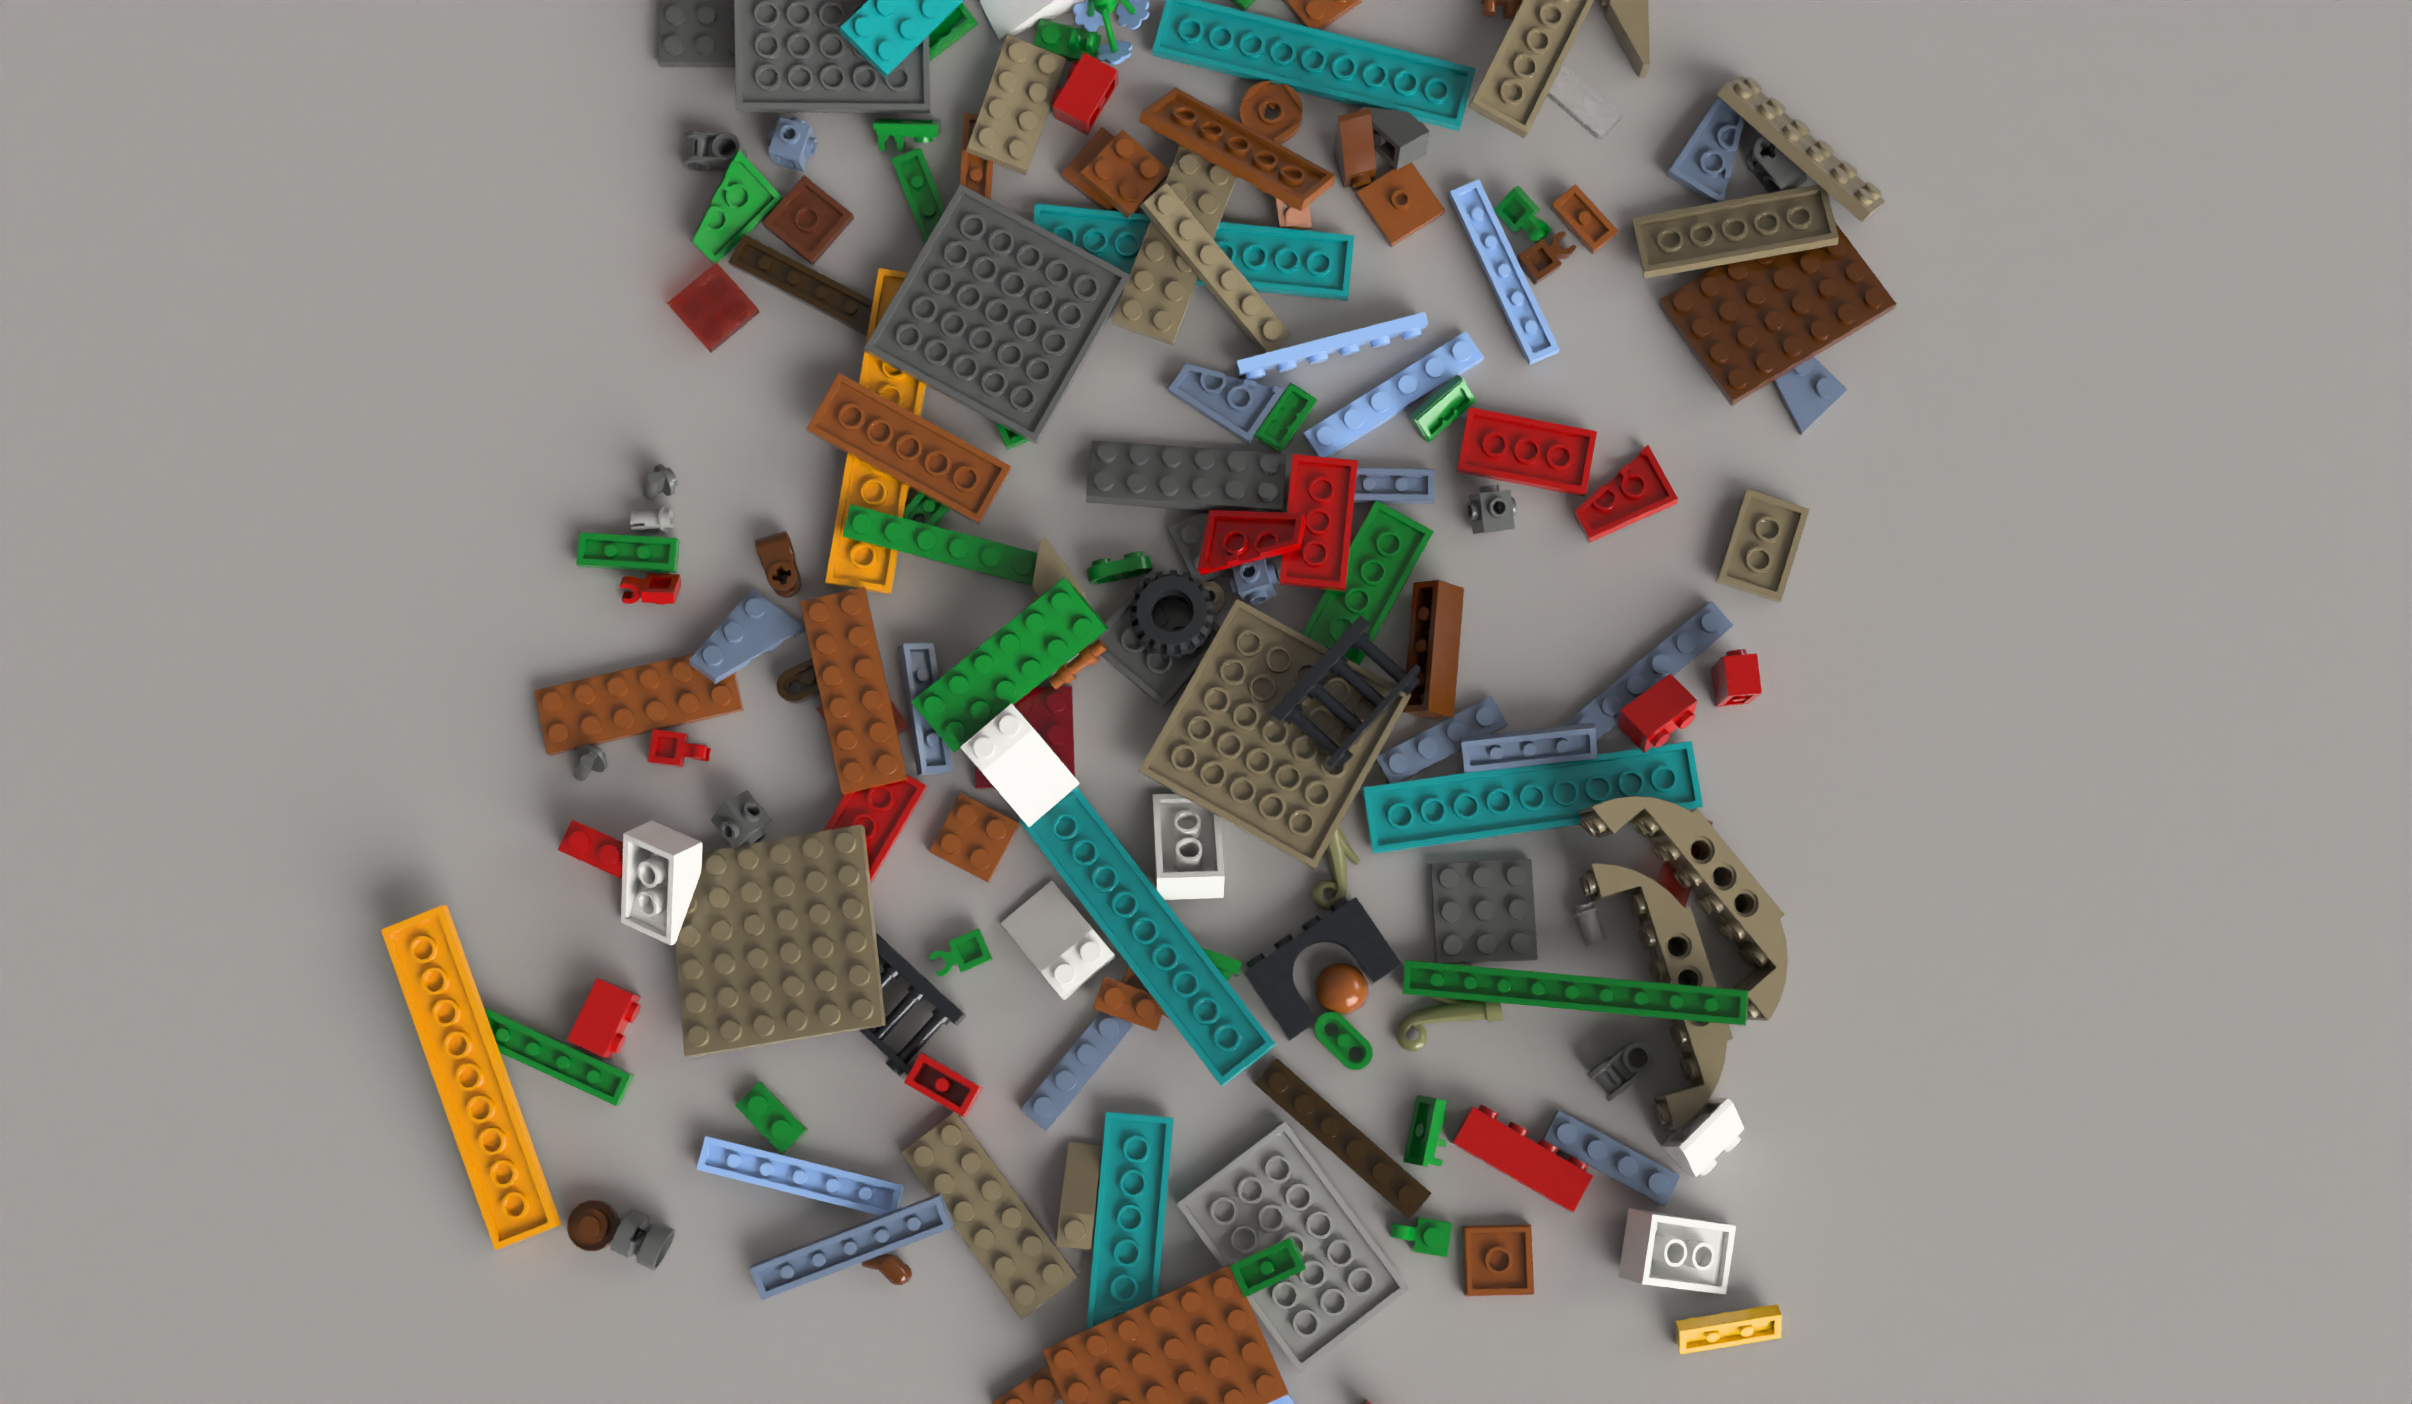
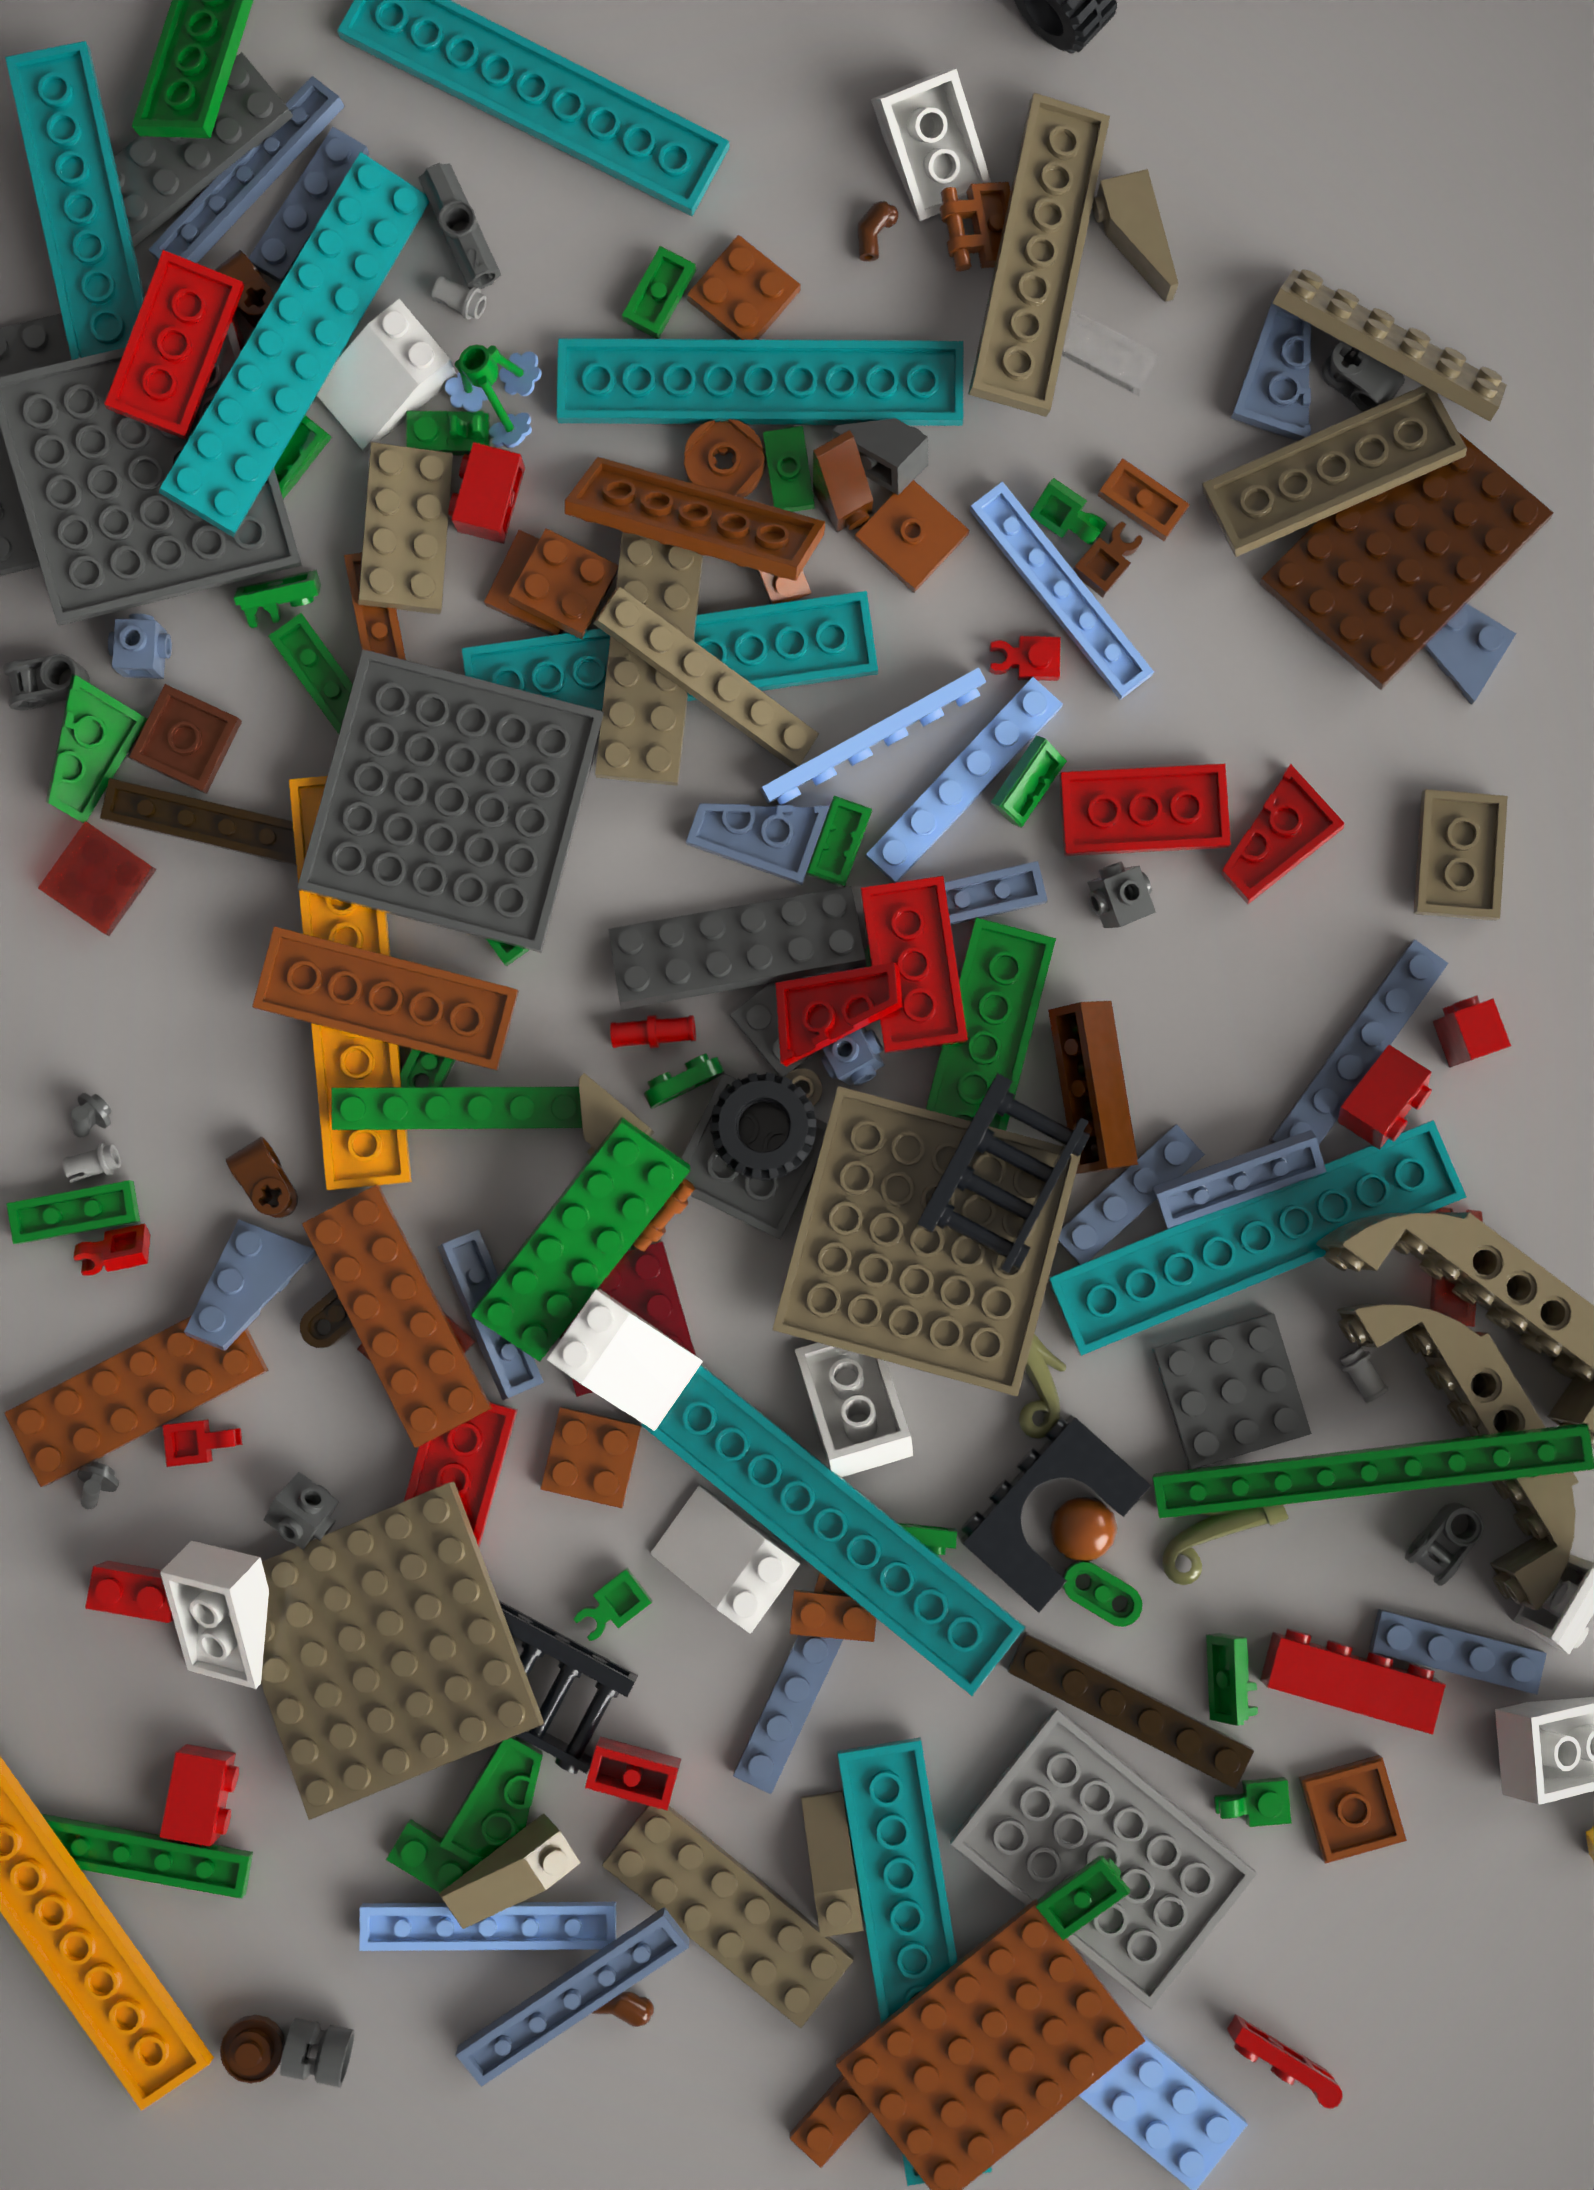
camera: 10 degrees left, 5 degrees up
(829, 1137) = (511, 1873): none -> dark tan slope
(830, 1088) = (496, 1803): none -> green wing
(1106, 526) = (653, 1031): none -> red pin
(1318, 131) = (789, 469): none -> green plate
(1469, 317) = (1034, 658): none -> red plate

